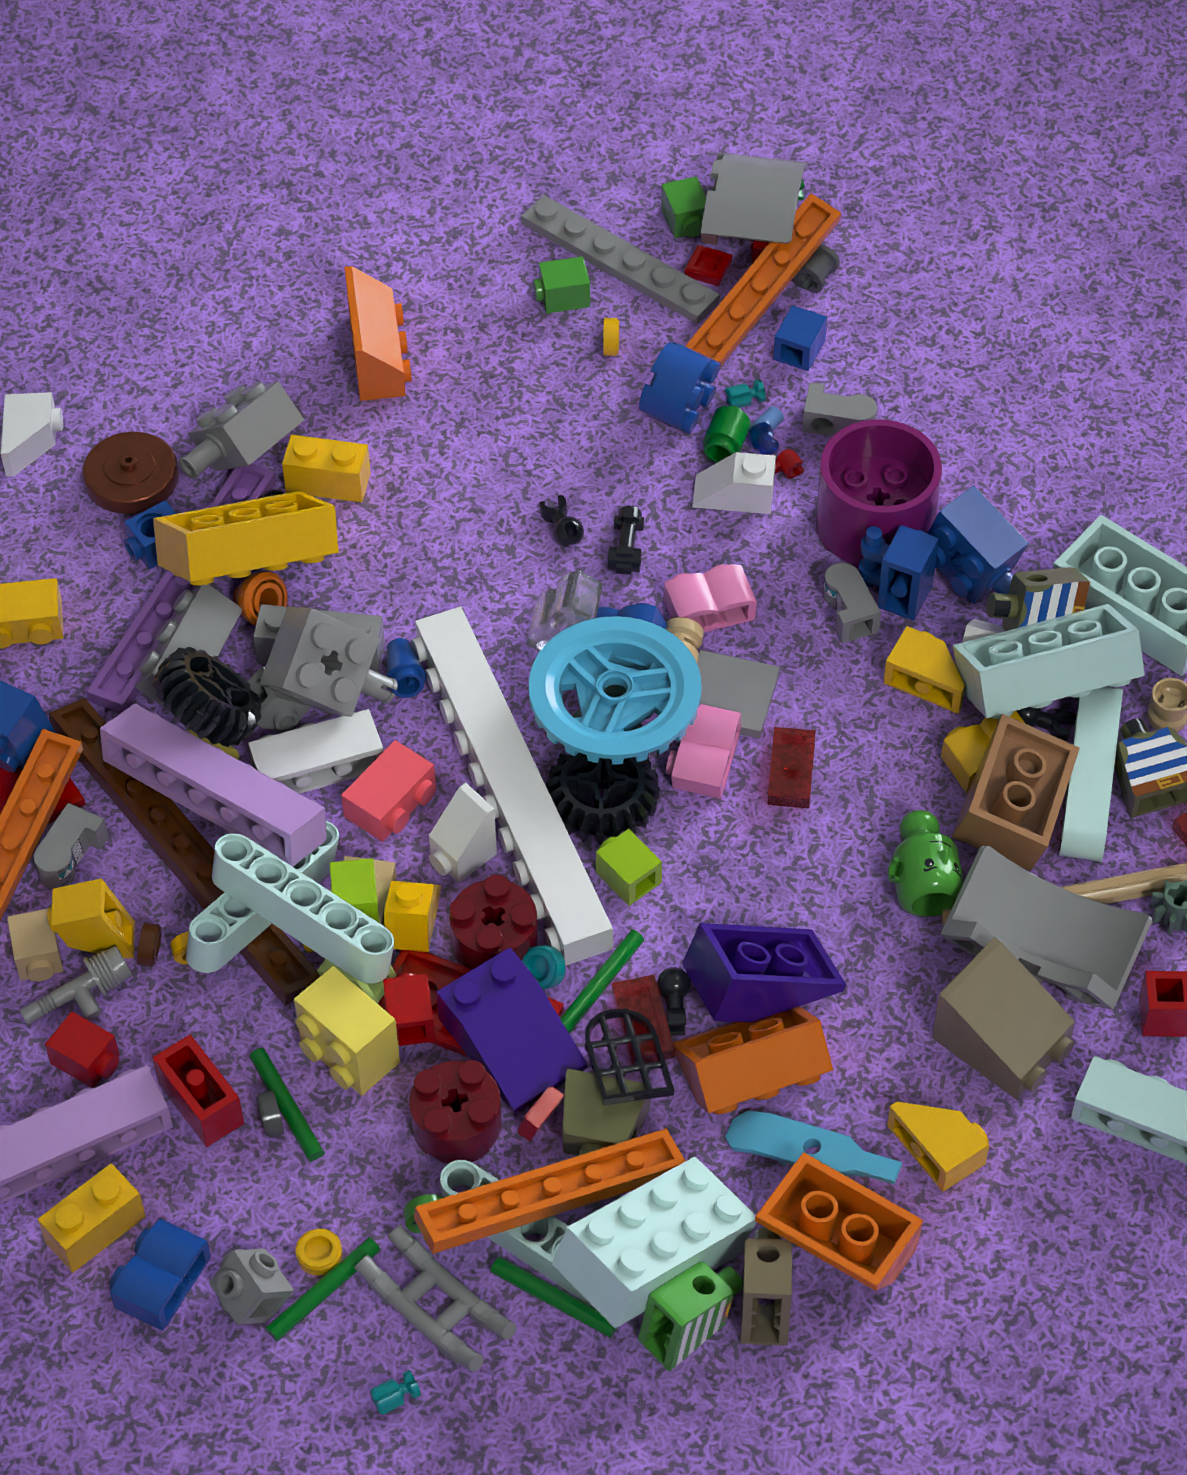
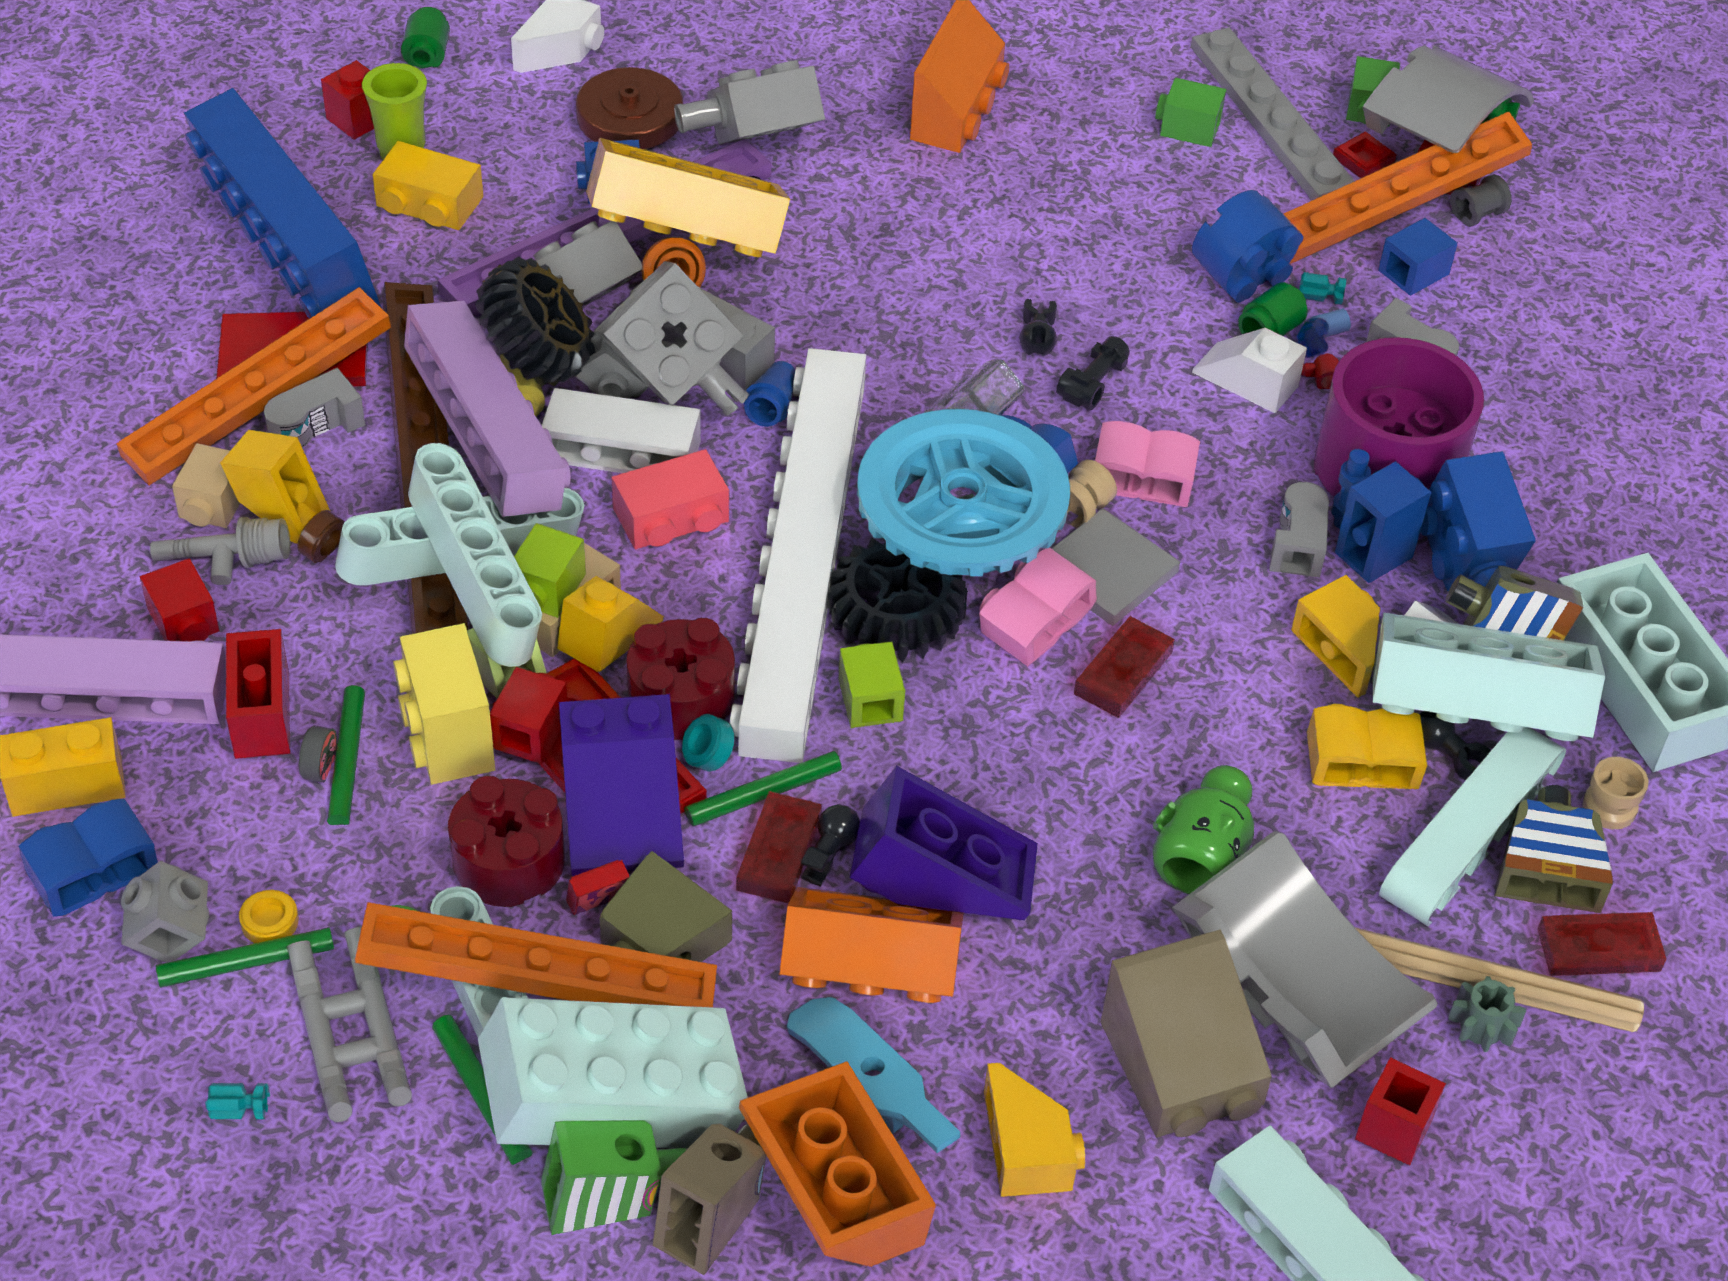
camera: 25 degrees right, 5 degrees down
(326, 468) = (825, 179): yellow brick -> none
(463, 835) = (711, 572): white slope -> none
(611, 337) = (1210, 177): yellow tile -> none
(639, 1065) = (734, 885): black window -> none
(1017, 792) = (1361, 798): medium nougat slope -> none

